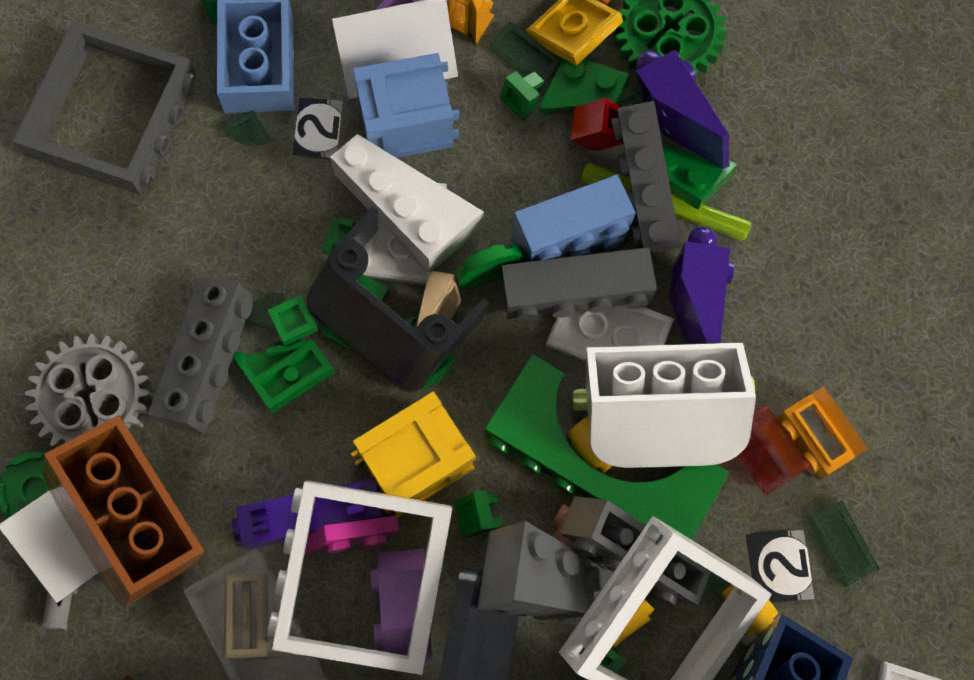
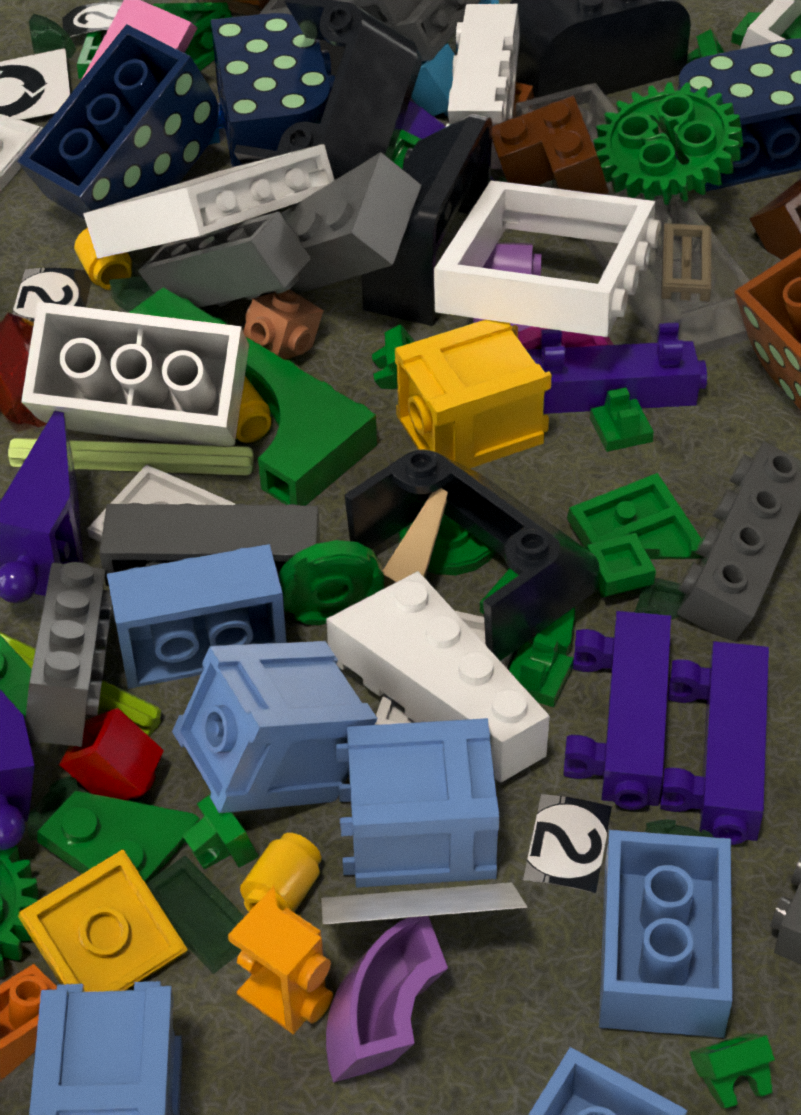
camera: 165 degrees left, 25 degrees down
(215, 195) = (734, 741): none -> dark purple brick
(278, 211) = (636, 709): none -> dark purple brick
(296, 471) = (621, 422): none -> green tile
(481, 72) = (287, 865): none -> yellow brick
(500, 133) = (270, 725): none -> medium blue container

